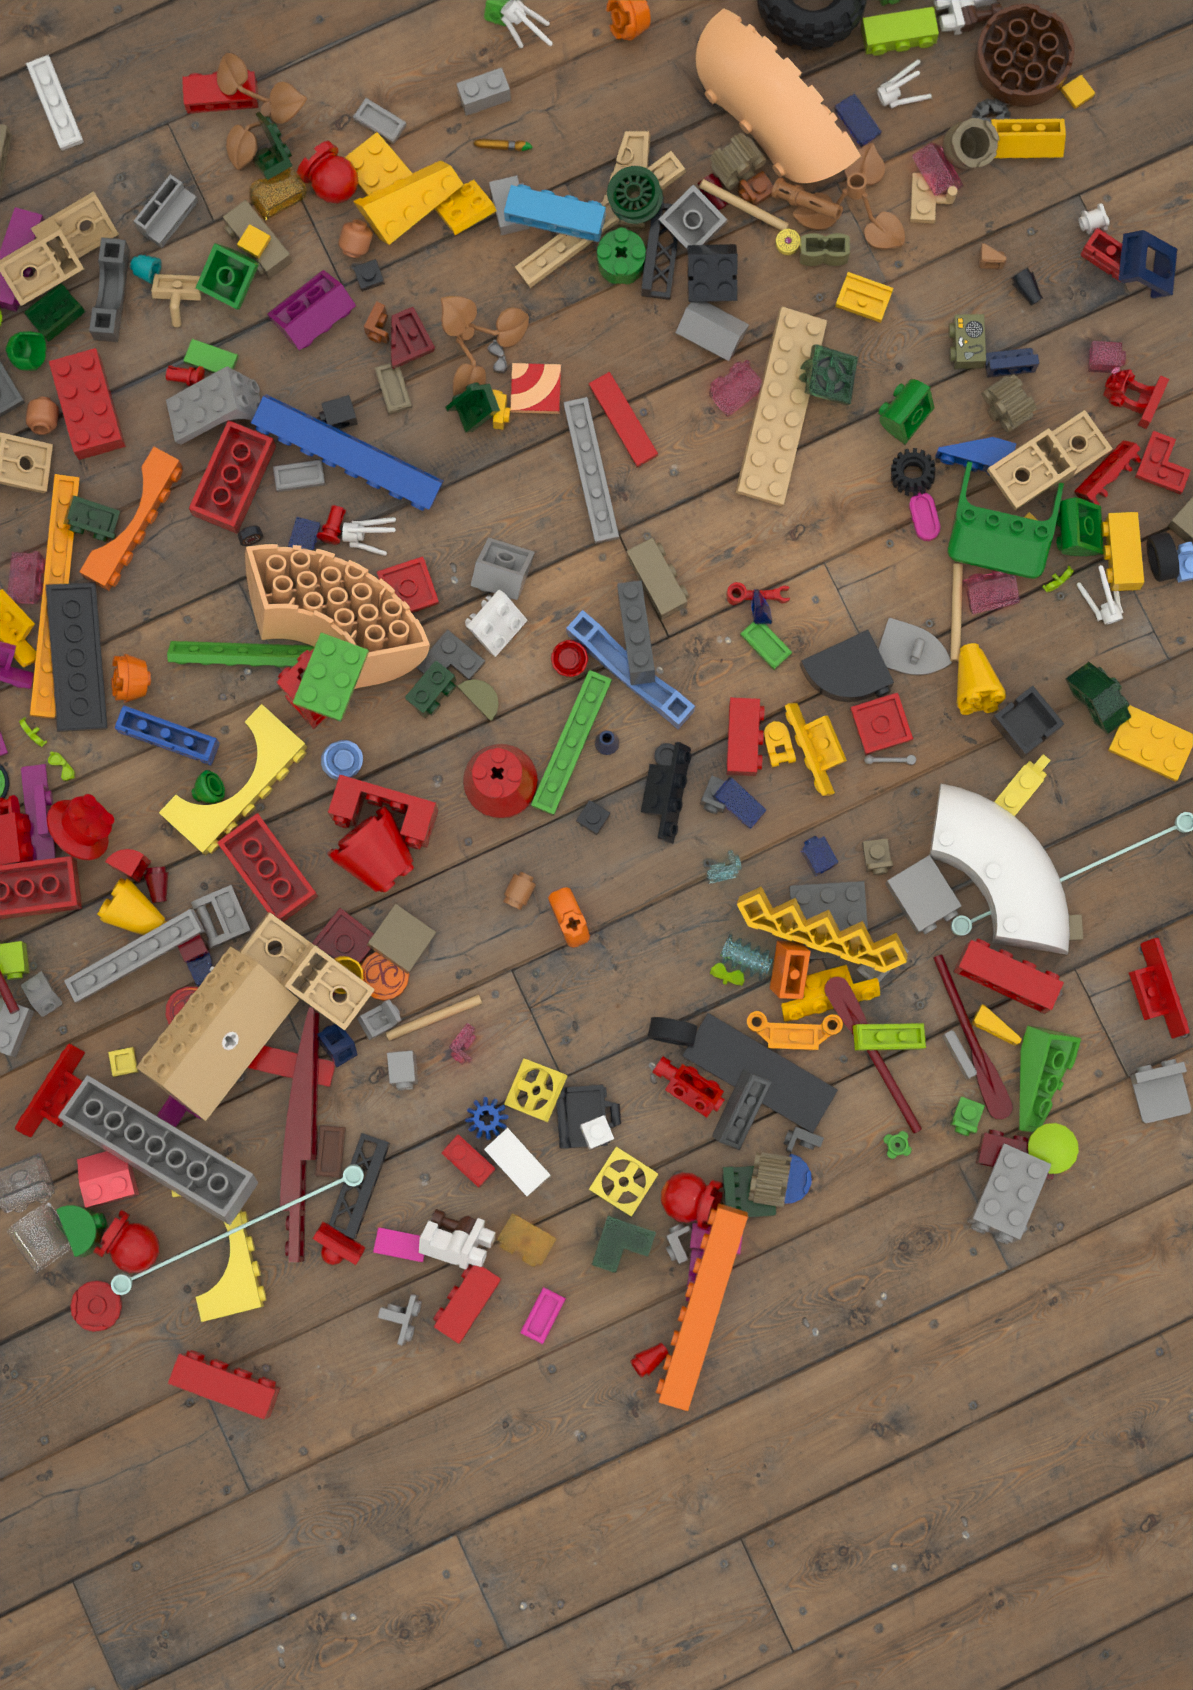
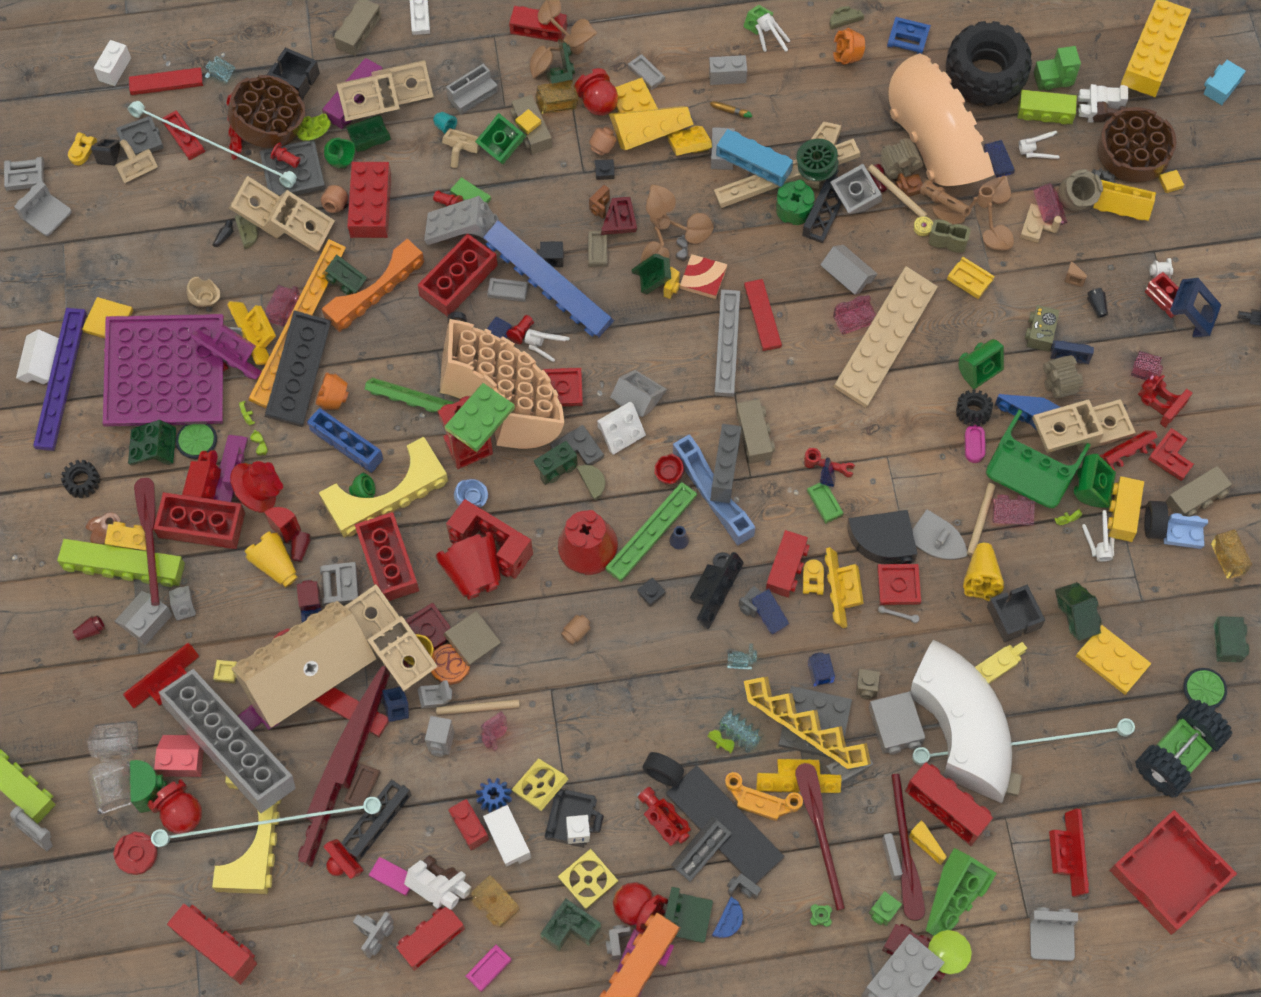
camera: 15 degrees right, 15 degrees down
(113, 273) = (404, 145): dark grey arch -> none
(134, 955) = (262, 591): light grey plate -> none
(312, 310) = (555, 181): magenta slope -> none
(569, 917) = (609, 660): orange piece -> none
(712, 272) = (859, 228): black piece -> none
(770, 1179) = (707, 907): dark tan brick -> none
(790, 969) = (772, 747): orange brick -> none
(829, 374) = (928, 320): clear green piece -> none
(889, 1036) = (838, 824): lime tile -> none

